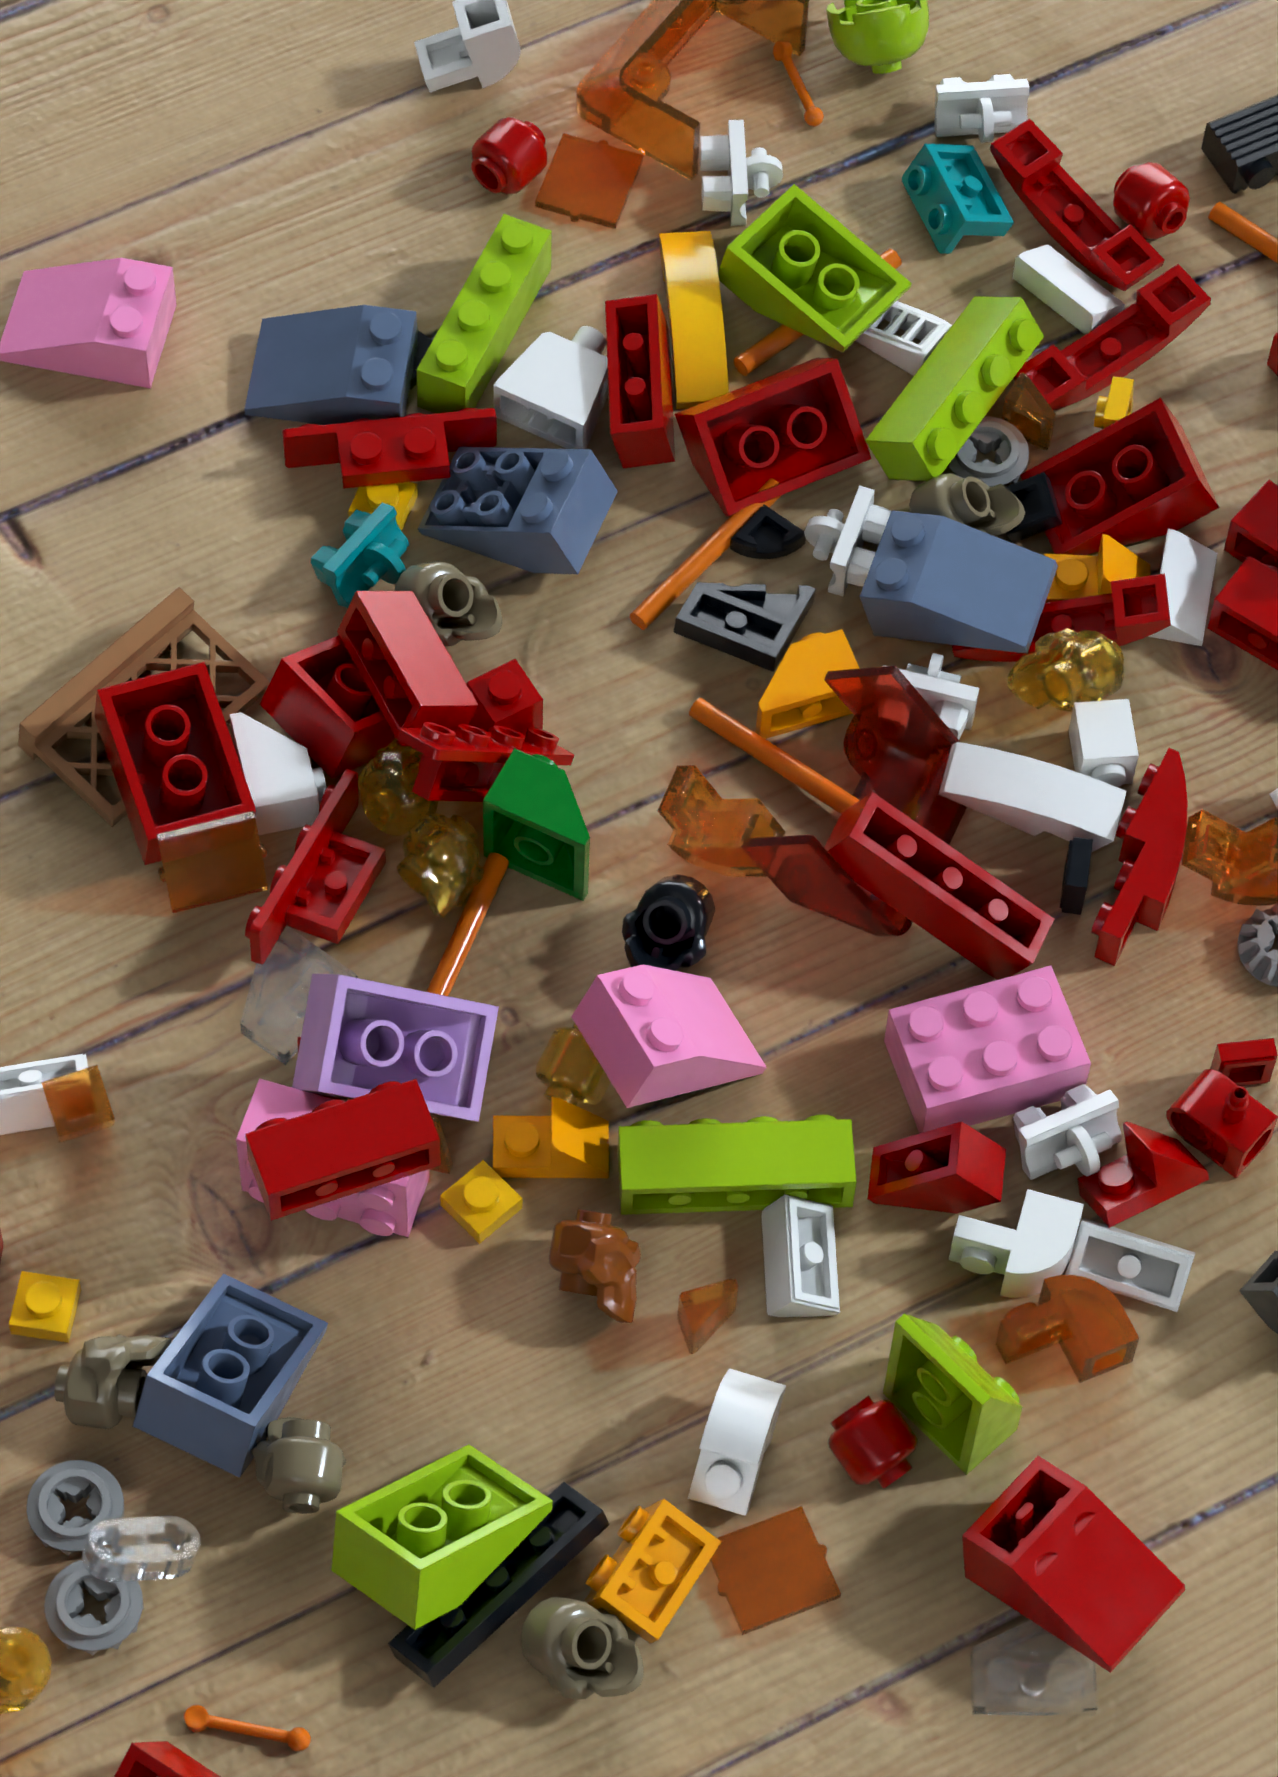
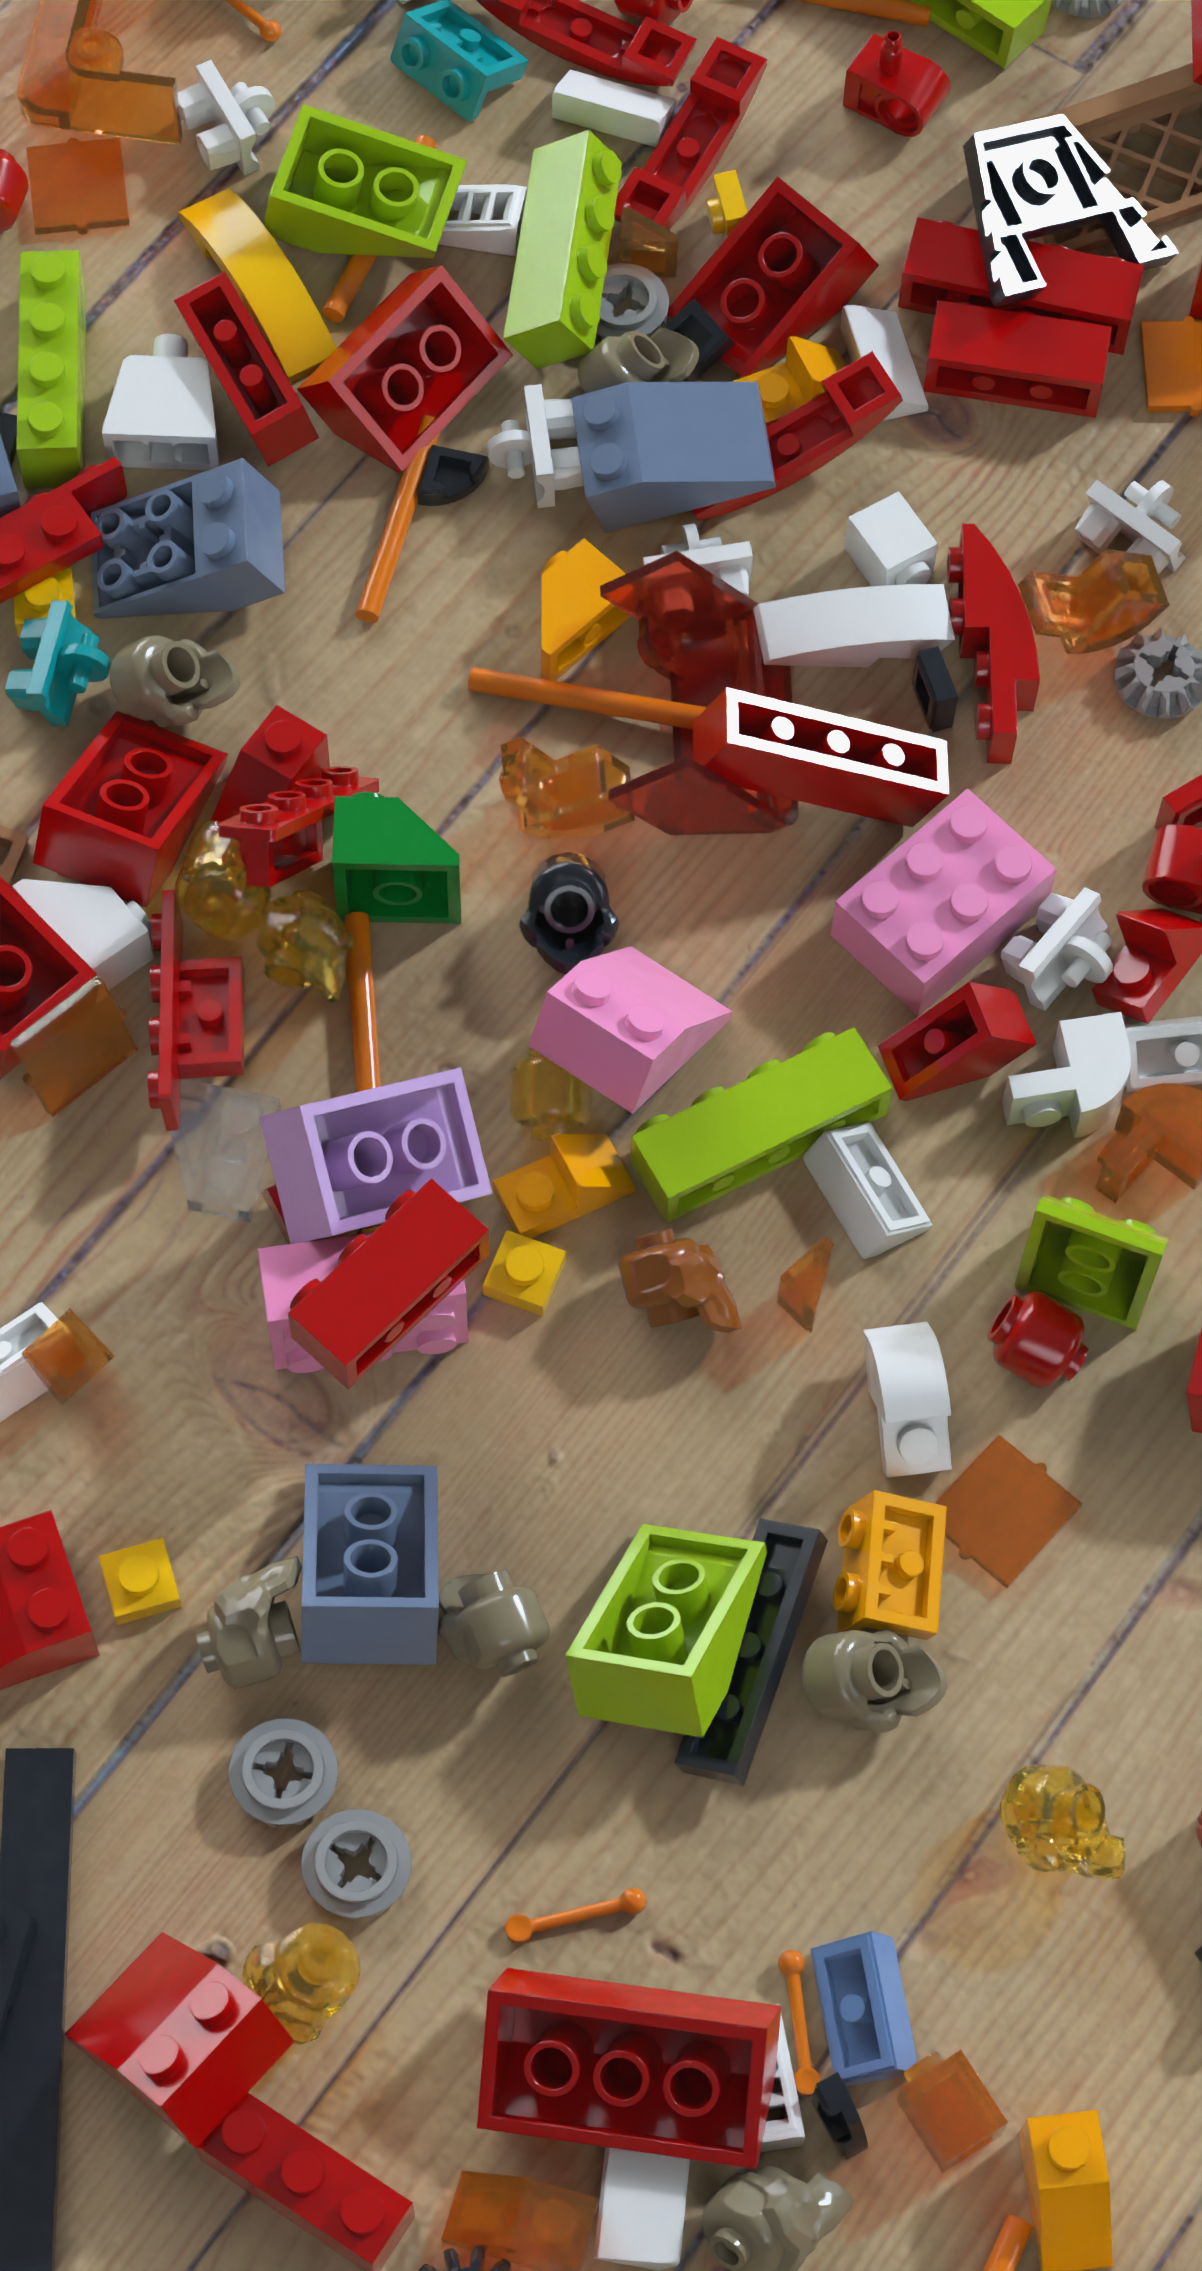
camera: 25 degrees left, 5 degrees up
(141, 1548) = (370, 1776): clear beam -> none
(404, 661) = (171, 758): brick -> none
(744, 620) = (474, 570): black wing -> none
(1068, 670) = (823, 488): clear yellow head -> none

